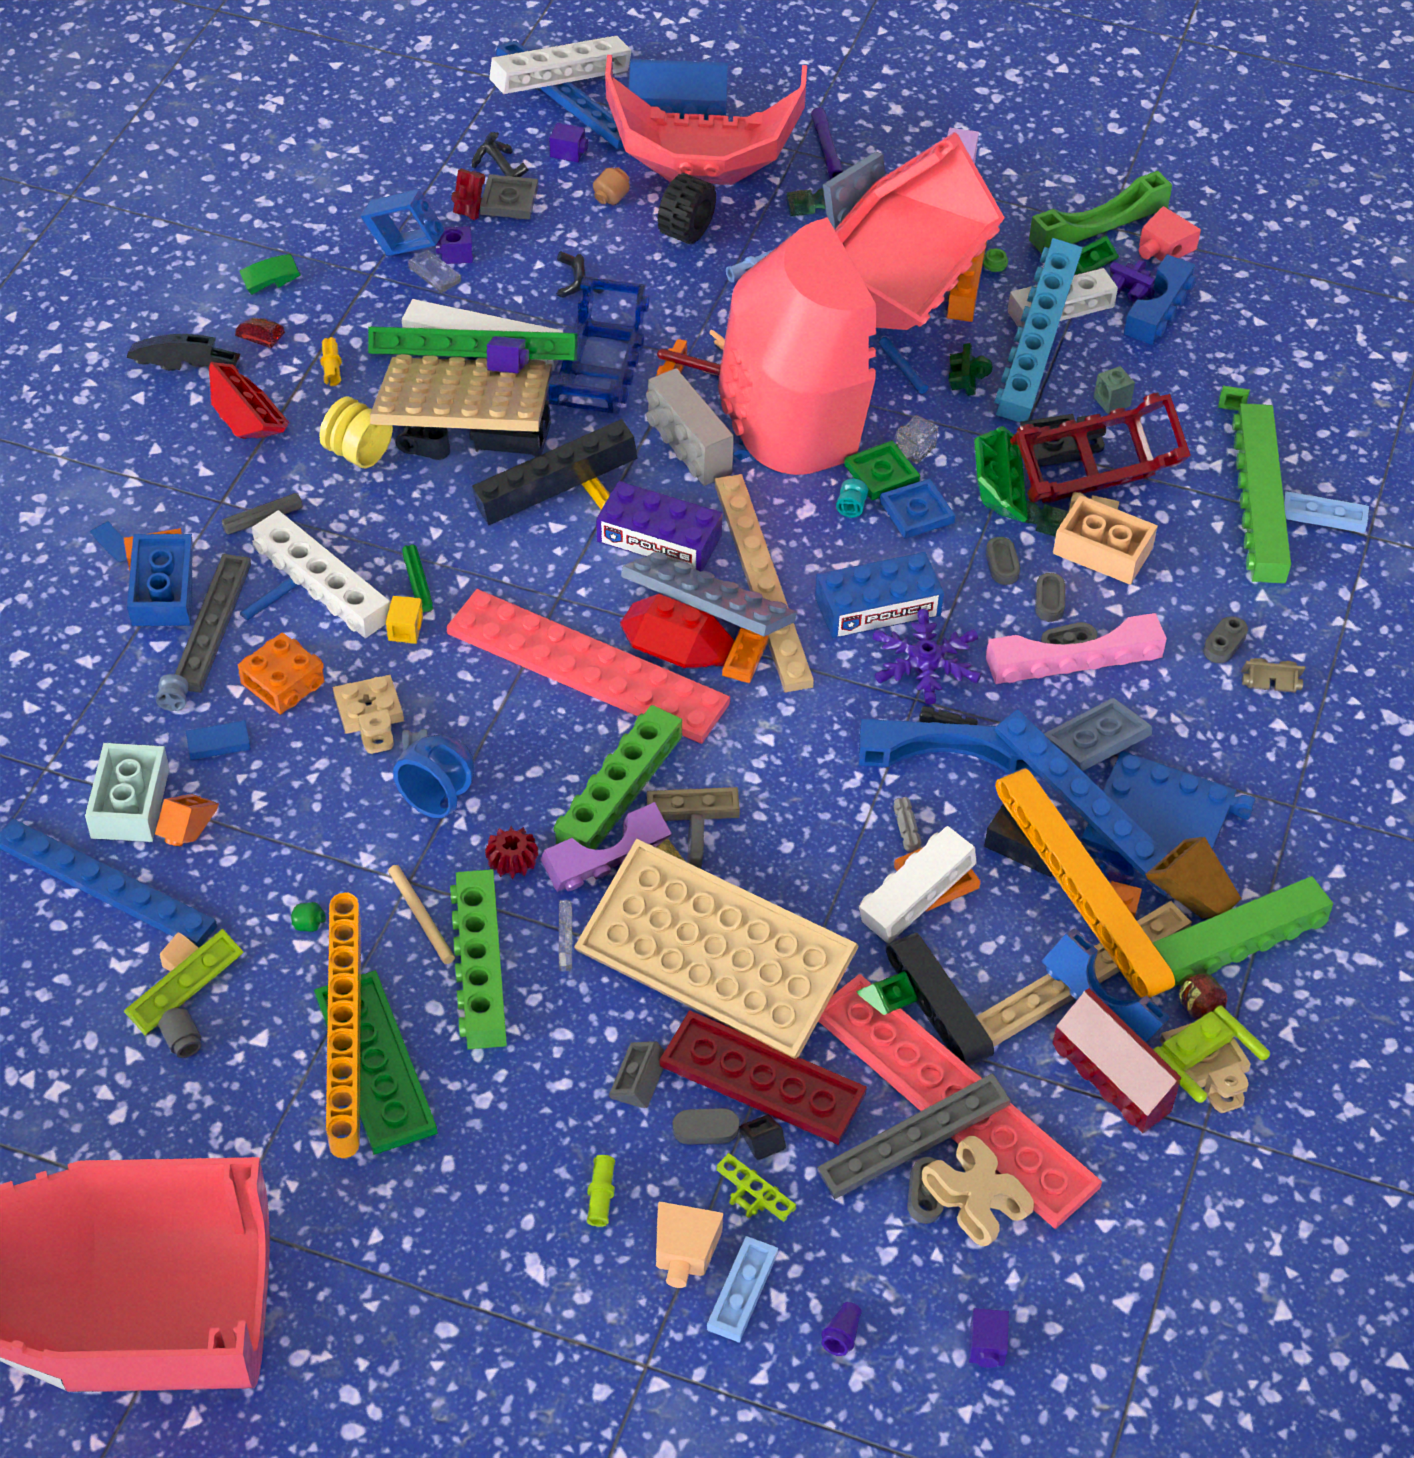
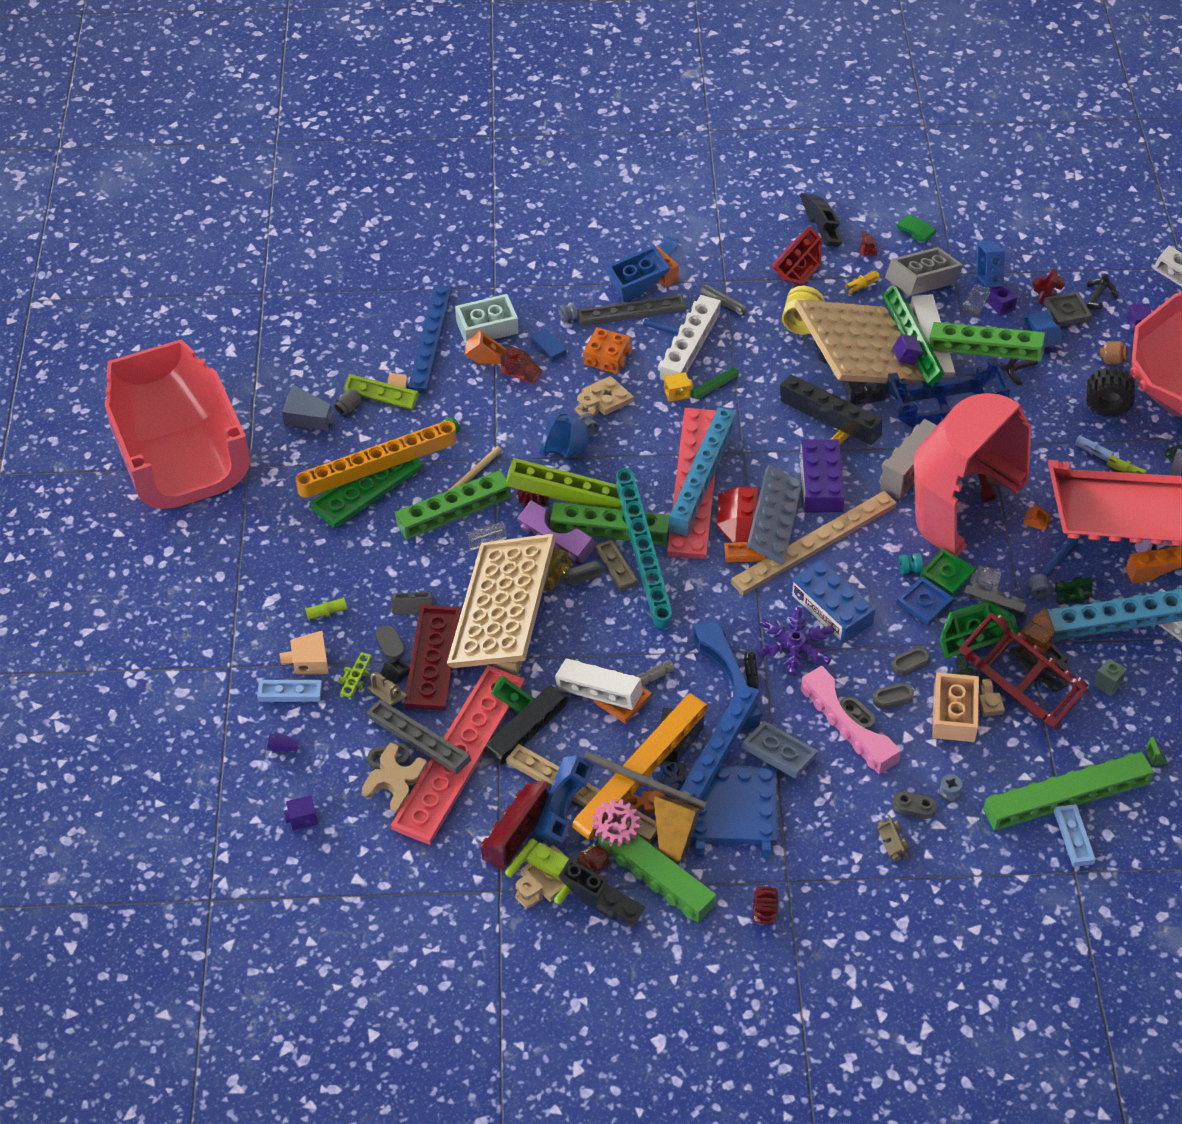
camera: 70 degrees right, 0 degrees up
(162, 1095) = (306, 410): none -> sand blue slope
(243, 786) = (519, 365): none -> clear red slope
(372, 289) = (923, 271): none -> light grey brick
(532, 229) = (1043, 322): none -> blue brick
(542, 799) = (562, 485): none -> lime brick
(547, 273) = (987, 341): none -> bright green brick
(595, 639) = (702, 471): none -> dark azure brick
(701, 750) = (647, 555): none -> teal beam
(804, 1155) = (385, 689): none -> dark tan hinge
(947, 396) = (1039, 586): none -> sand blue wheel
(967, 432) = (998, 598): none -> dark grey plate
(1025, 410) = (1040, 631): none -> clear orange slope
(1156, 852) = (684, 797): none -> flat silver bar
(1175, 938) = (613, 831): none -> bright pink gear
(1216, 594) = (950, 793): none -> sand blue wheel
(1270, 1002) = (599, 895): none -> black slope
(1340, 833) = (765, 905): none -> dark red gear

